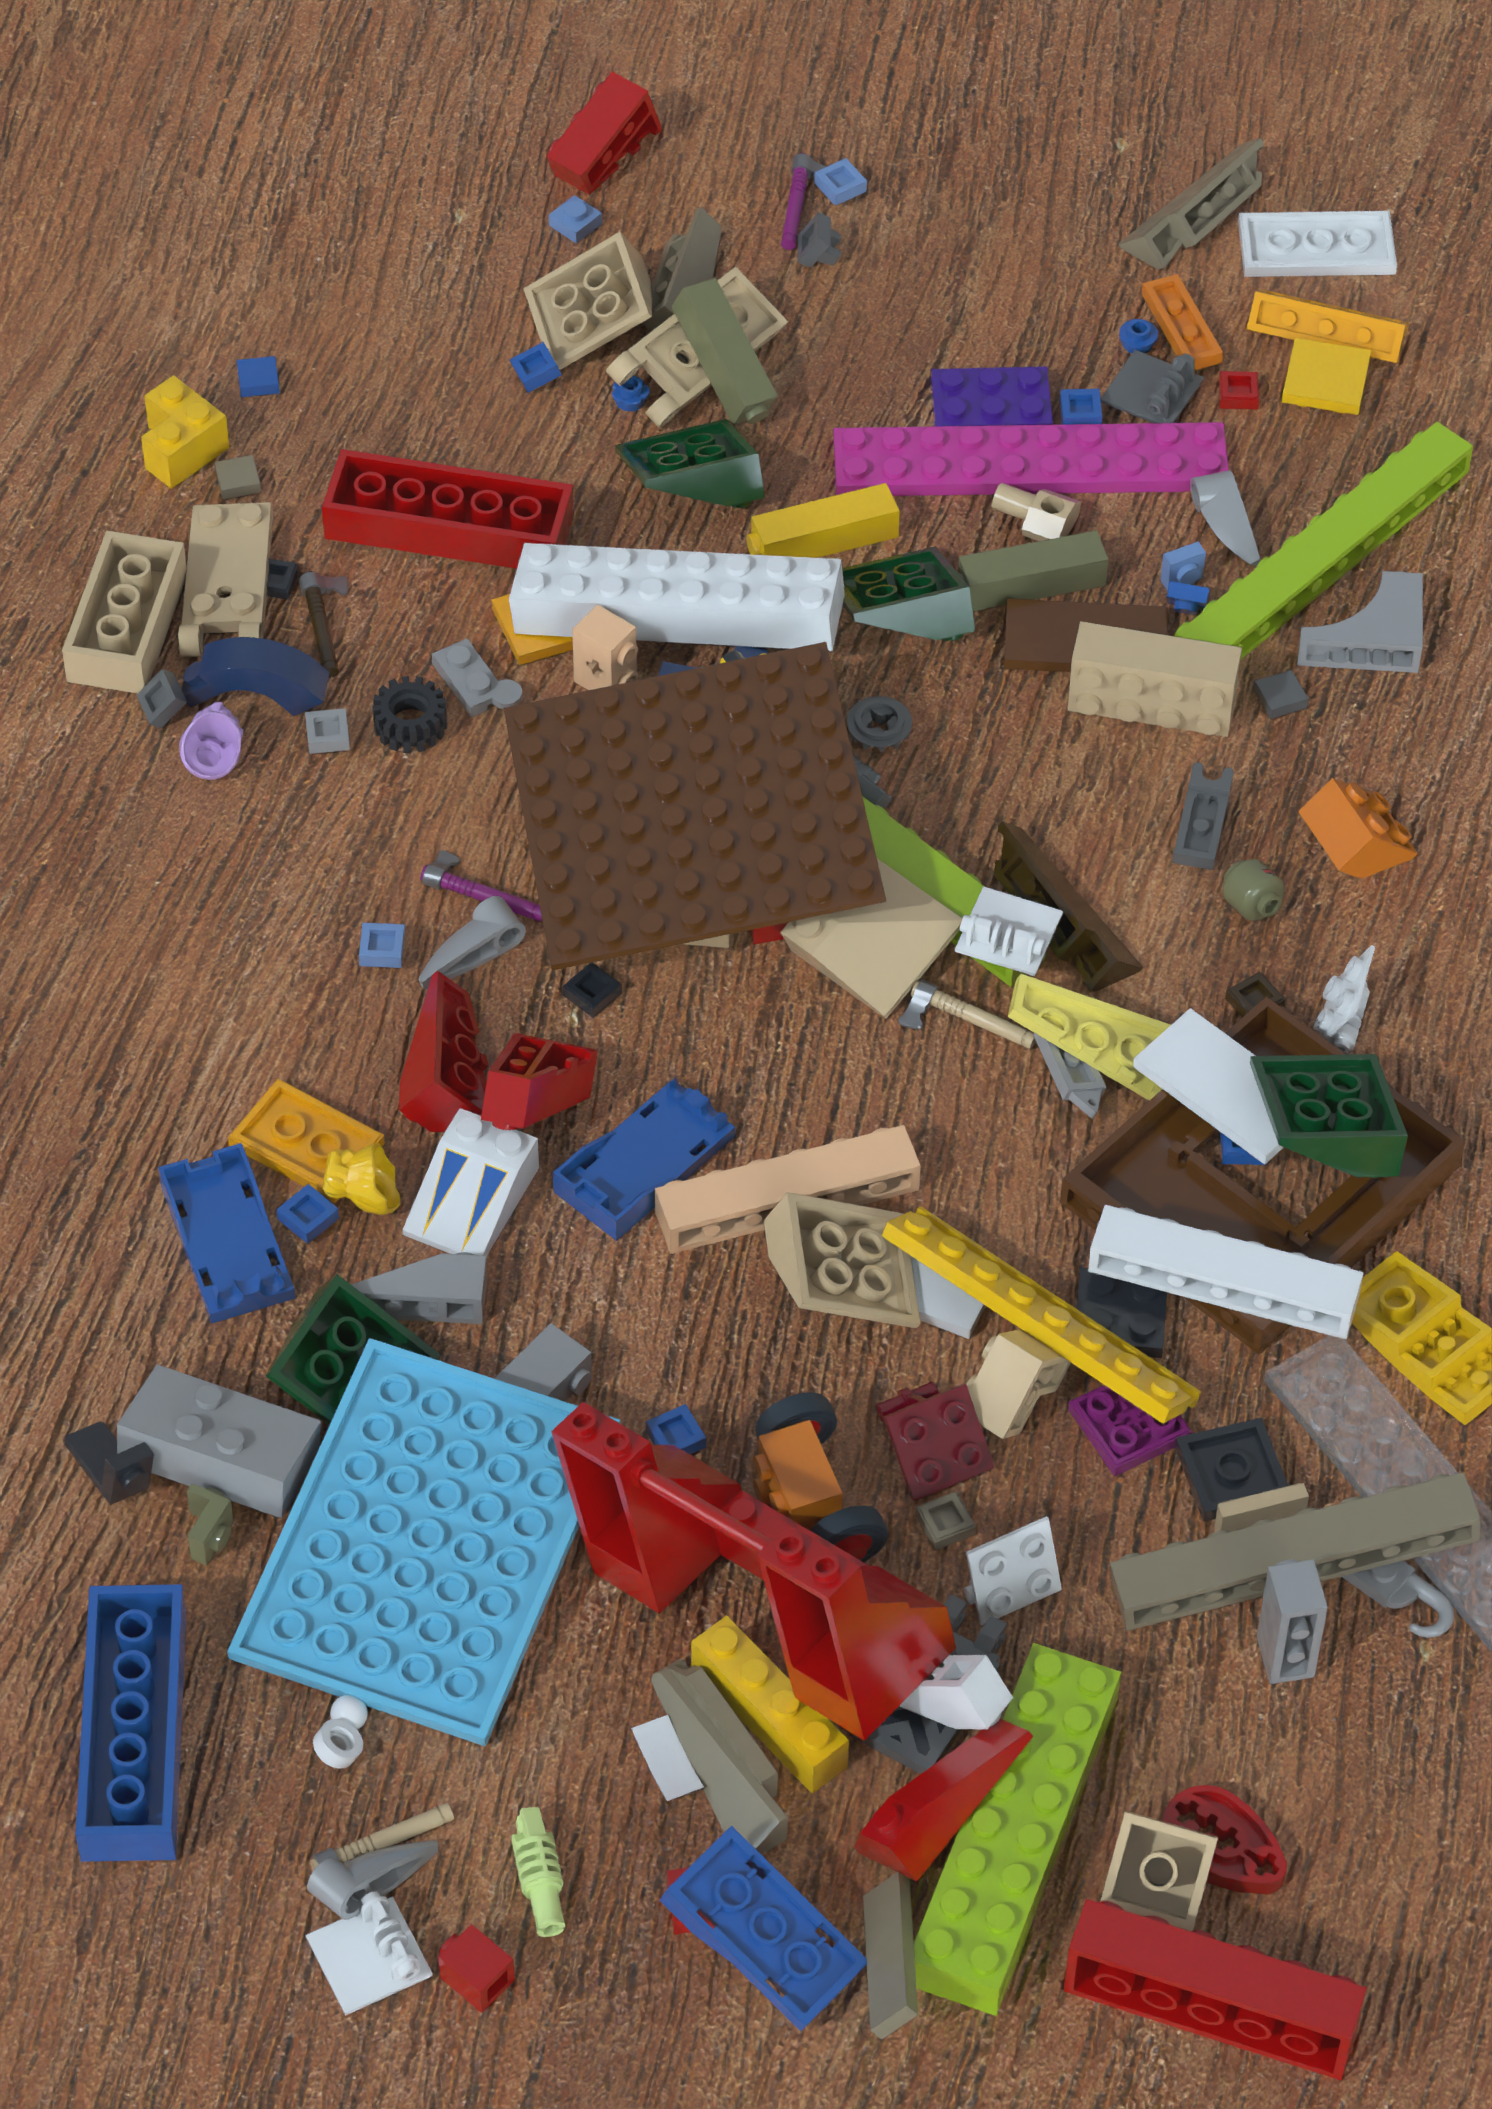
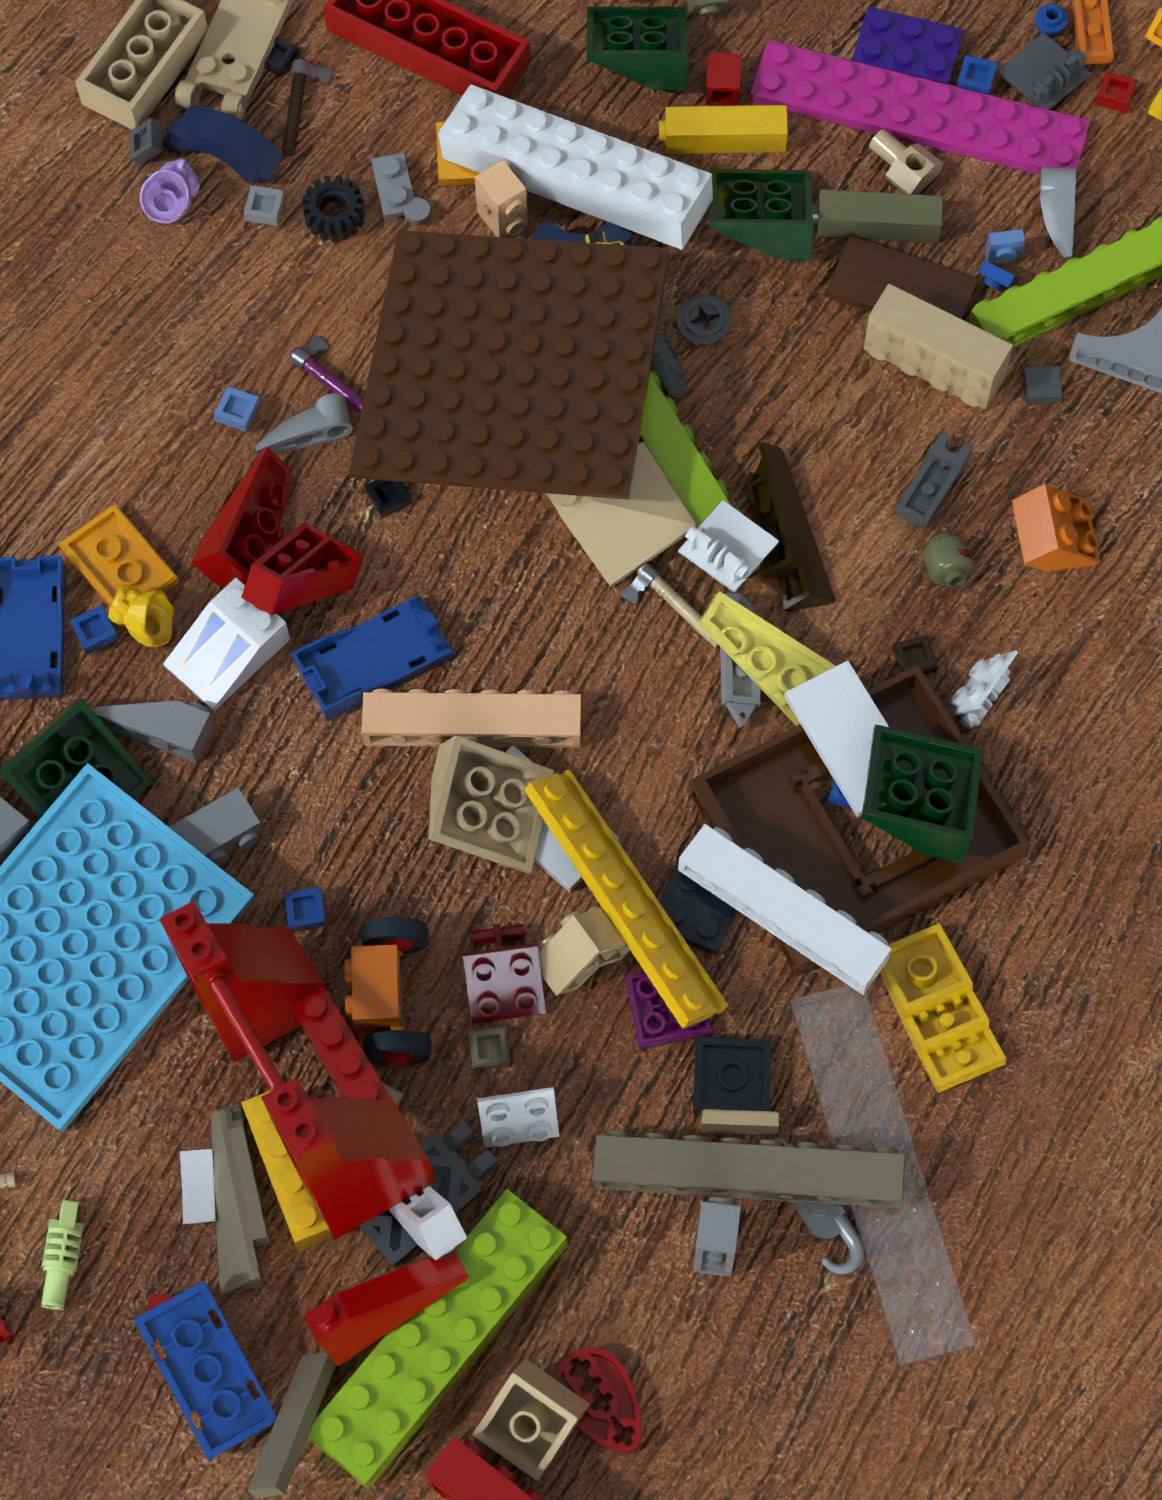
camera: 20 degrees right, 15 degrees up
(800, 475) = (723, 79): none -> red brick

